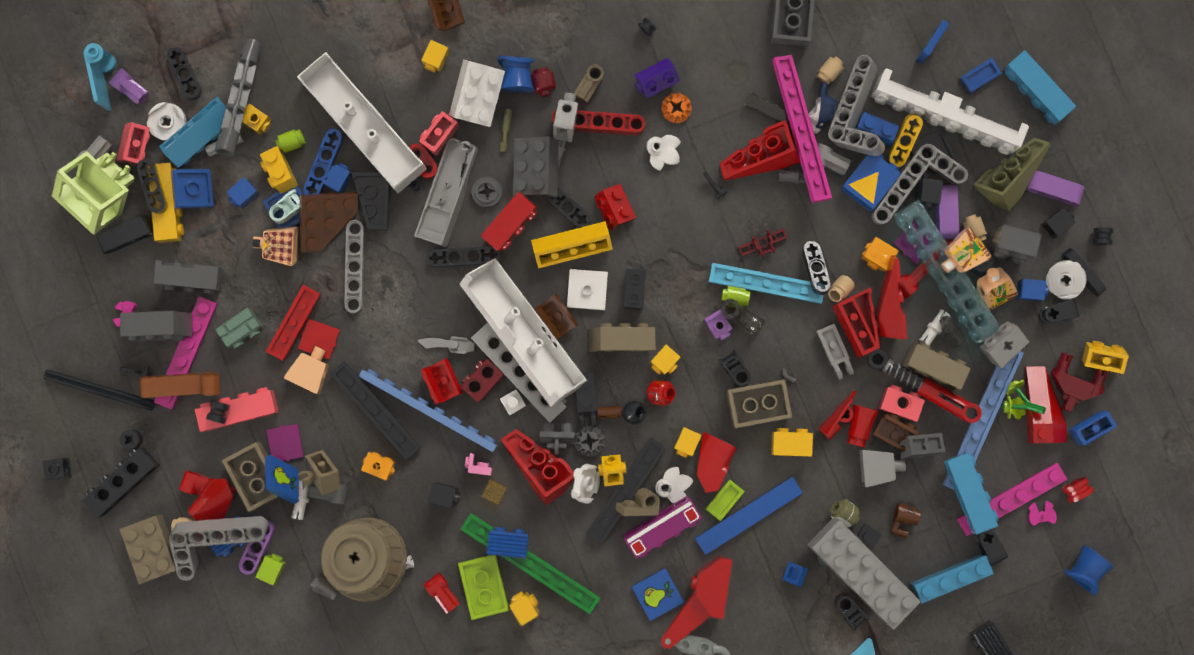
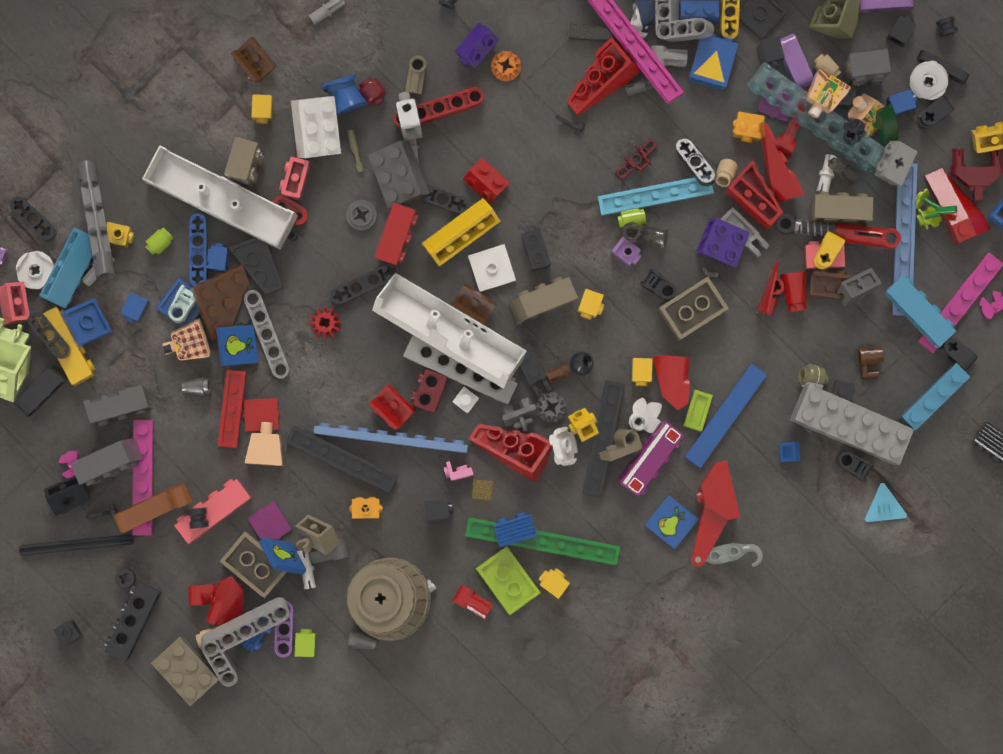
camera: 25 degrees left, 0 degrees up
(106, 341) = (57, 493): none -> black brick
(239, 328) = (184, 434): sand green brick -> none
(271, 289) = (197, 386): none -> flat silver cone
(278, 169) = (163, 275): yellow brick -> none
(322, 266) = (237, 345): none -> blue tile
(396, 99) = (244, 162): none -> dark tan brick
(417, 273) = (327, 316): none -> red gear
(446, 193) = (324, 230): light grey piece -> none
(455, 345) = (391, 368): light grey piece -> none
(661, 392) = (599, 335): red head -> none
(666, 152) = (513, 111): white plate -> none
(792, 443) = (738, 333): yellow brick -> none
(811, 352) = (722, 241): none -> dark purple bracket
(879, 467) = (827, 322): light grey torso -> none
(910, 399) = (829, 248): none -> yellow piece
(912, 179) = (750, 44): light grey beam -> none
(978, 297) = (854, 130): none -> black gear
(1010, 303) = (887, 123): none -> dark green slope

